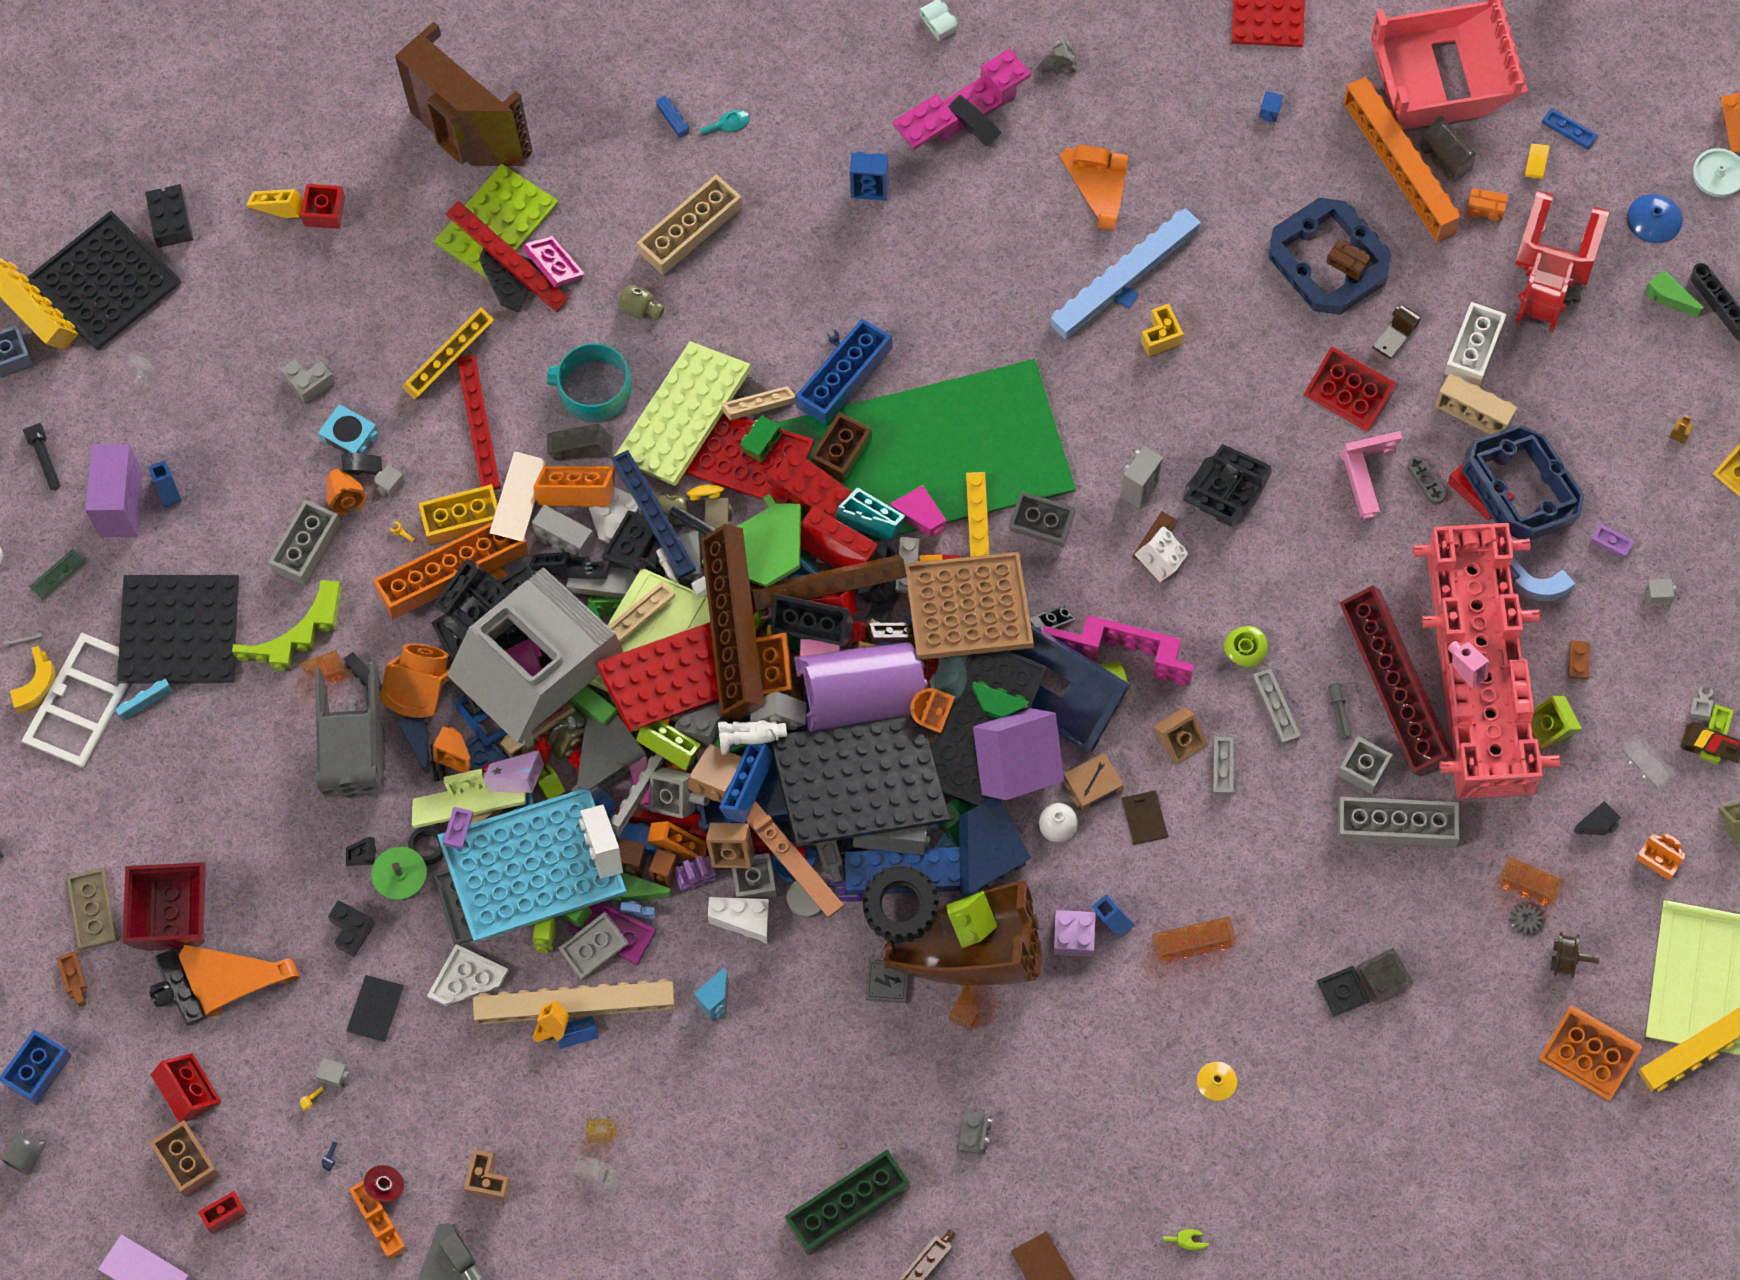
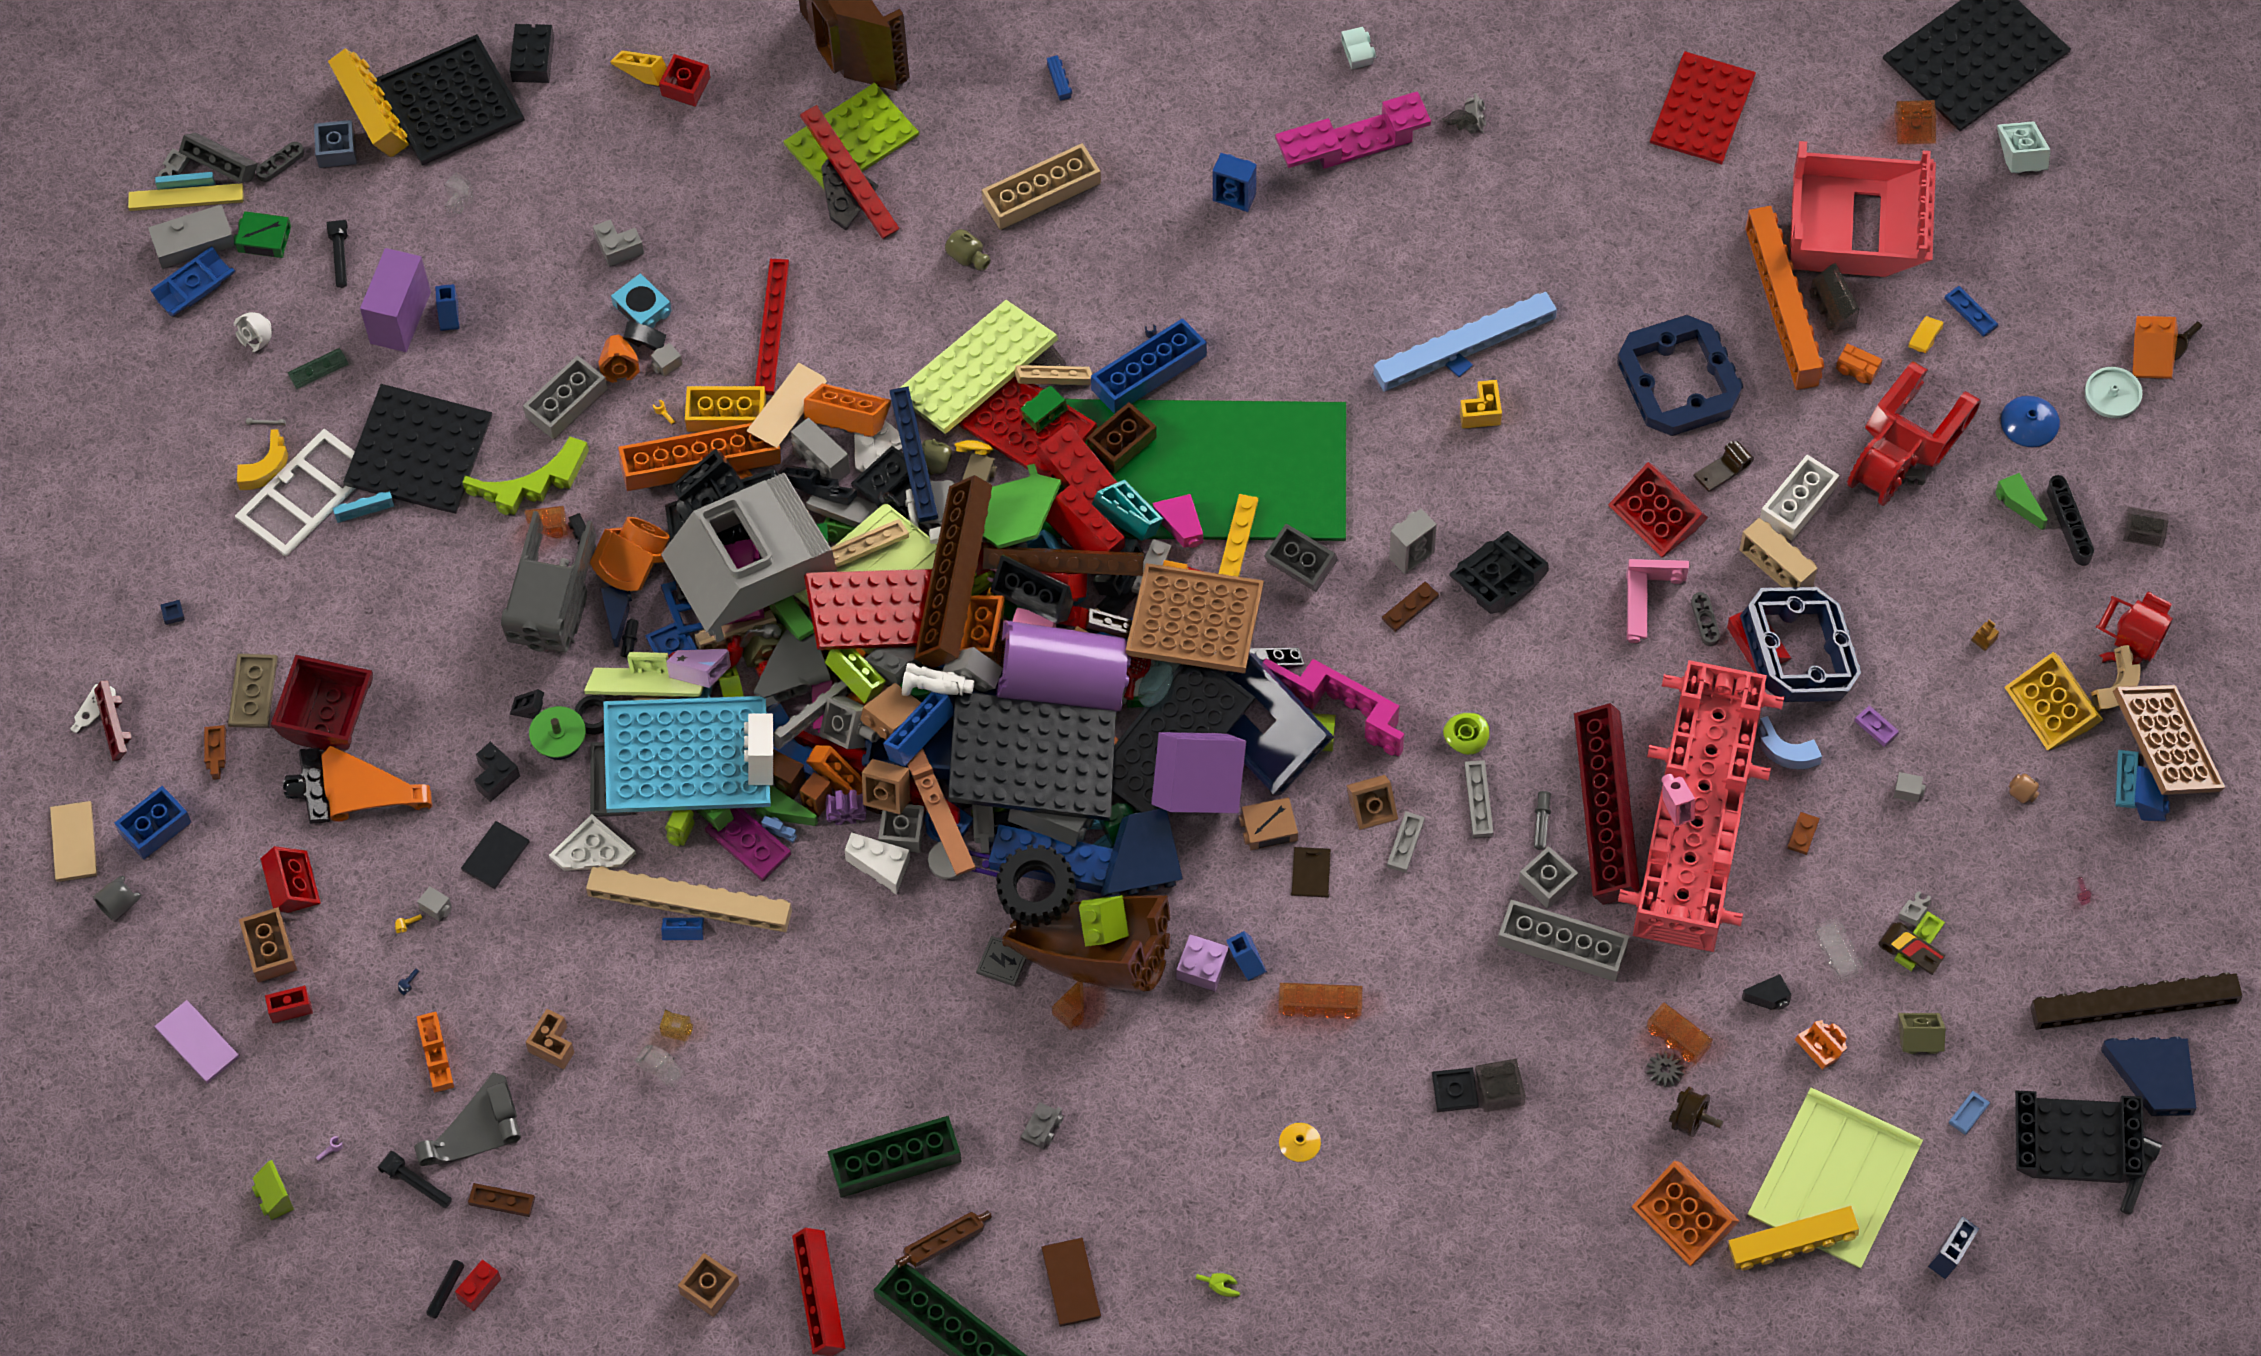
camera: 15 degrees right, 5 degrees down
(384, 1176) = (451, 1012): dark red dish -> none
(447, 353) = (762, 251): yellow brick -> none
(451, 750) = (642, 627): orange slope -> none
(458, 828) = (624, 699): medium lavender plate -> none
(551, 1022) = (662, 910): light orange brick -> none
(553, 261) = (895, 189): dark pink plate -> none
(580, 443) = (865, 370): clear smoke wedge -> none
(582, 354) = (890, 286): teal cylinder -> none
(593, 945) = (724, 850): light grey tile -> none
(691, 520) = (946, 467): black axle -> none
(714, 995) = (827, 927): dark azure slope -> none
(729, 122) = (1116, 97): teal piece -> none
(931, 708) = (1125, 706): orange slope -> none
(974, 120) = (1359, 154): black slope -> none
(998, 702) = (1194, 717): green slope -> none
(1058, 822) = (1222, 853): white cylinder -> none
(1100, 180) = (1470, 244): orange panel -> none
(1162, 554) = (1411, 622): white bracket -> none
(1270, 106) = (1668, 214): blue brick -> none
(1348, 259) = (1694, 381): reddish brown brick -> none
(1554, 721) = (1755, 885): lime slope -> none

